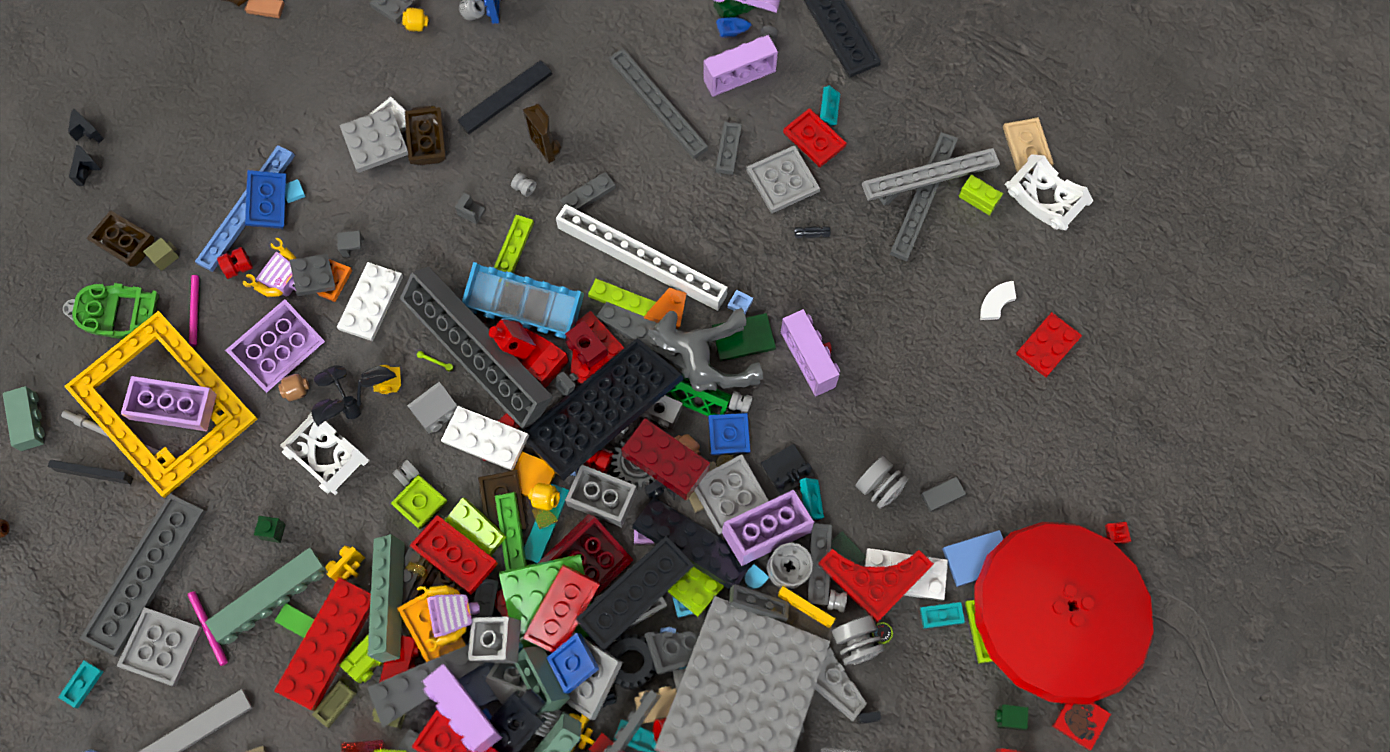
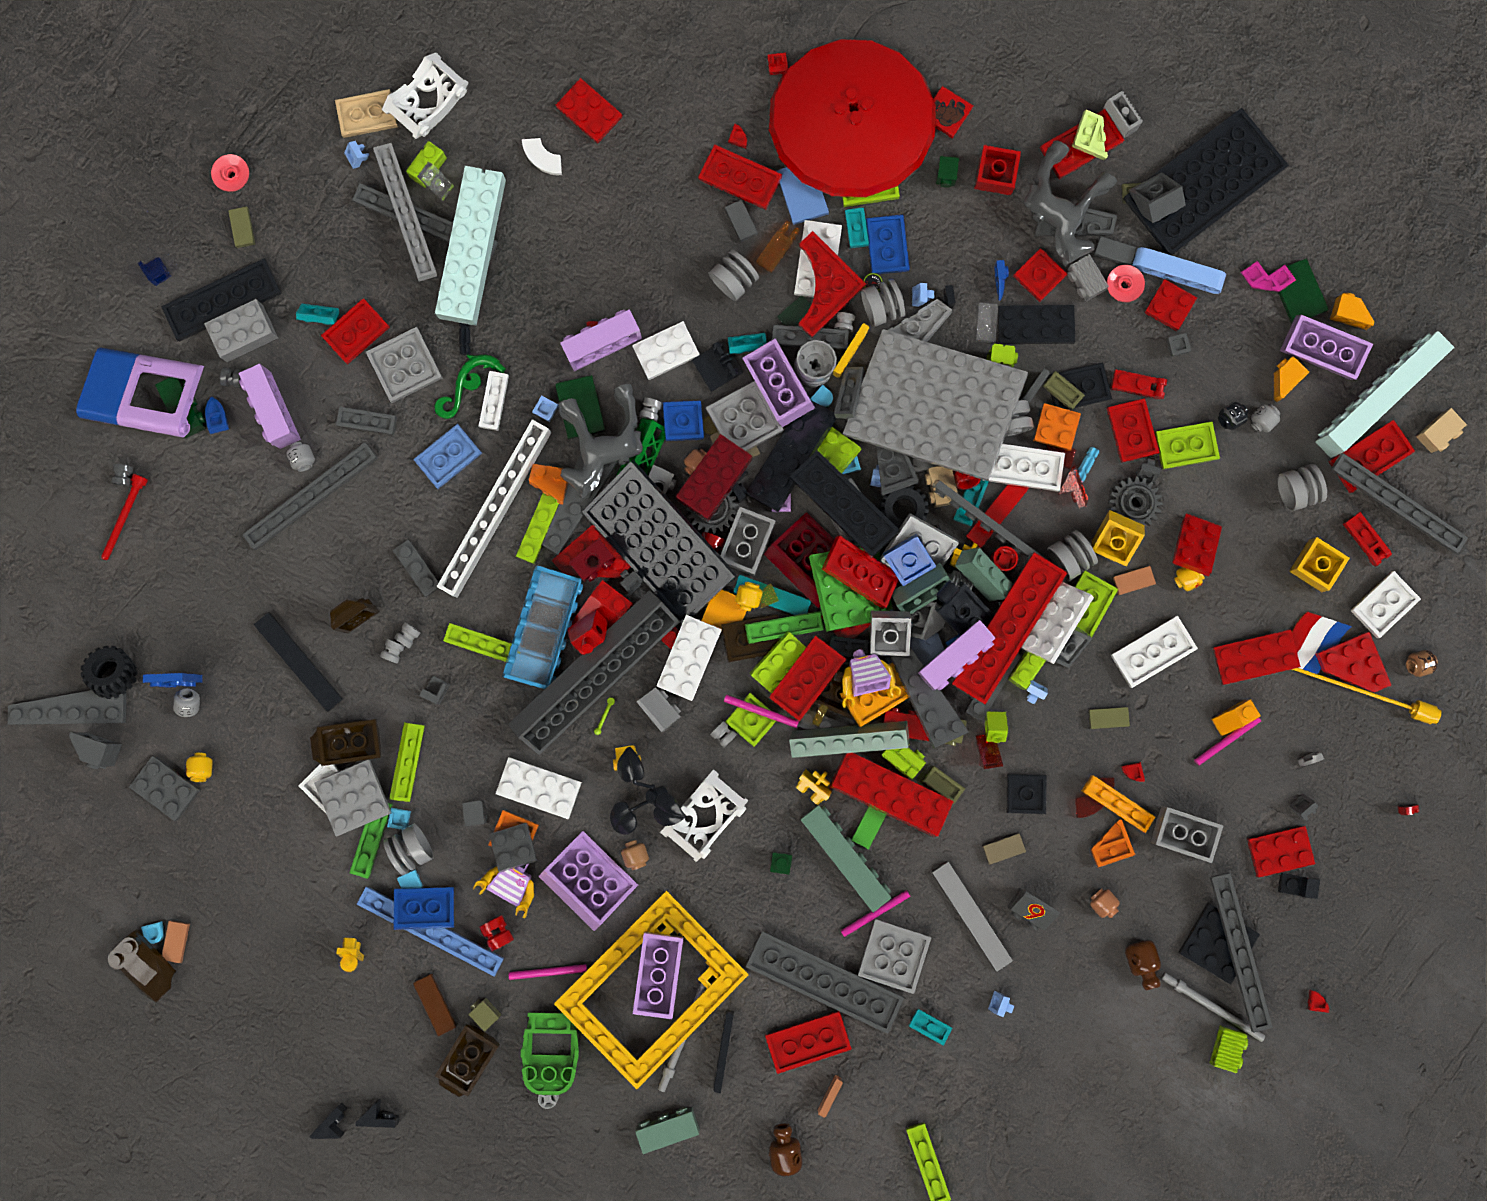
camera: 90 degrees left, 15 degrees up
(27, 577) = (830, 1096): none -> nougat tile
(86, 556) = (808, 1042): none -> red plate
(177, 213) = (434, 1005): none -> reddish brown tile
(234, 140) = (350, 953): none -> yellow hips
(320, 185) = (406, 850): none -> light grey wheel
(331, 156) = (368, 847): none -> bright green tile
(353, 181) = (399, 818): none -> medium azure tile
(404, 185) = (406, 762): none -> lime plate
(425, 508) = (761, 711): none -> dark pink bar
(508, 171) = (392, 651): none -> light grey wheel
(694, 93) = (300, 456): none -> light grey head
(695, 219) = (447, 456): none -> medium blue tile
(748, 257) = (493, 400): none -> white plate
(767, 230) = (473, 384): none -> green plant
(803, 419) = (665, 350): none -> white plate
(812, 44) = (241, 330): none -> light grey brick
(870, 685) = (921, 295): none -> light blue tile
(901, 231) = (470, 245): none -> light aqua piece
(910, 44) = (241, 227): none -> olive tile
(916, 531) = (777, 248): none -> clear orange hinge
(926, 650) = (887, 244): none -> blue tile
(962, 27) = (224, 167): none -> coral dish
(963, 201) = (435, 181): none -> clear plate
(985, 134) = (354, 154): none -> light blue tile
(989, 492) = (740, 177): none -> red plate
(1033, 492) = (738, 137): none -> red tile

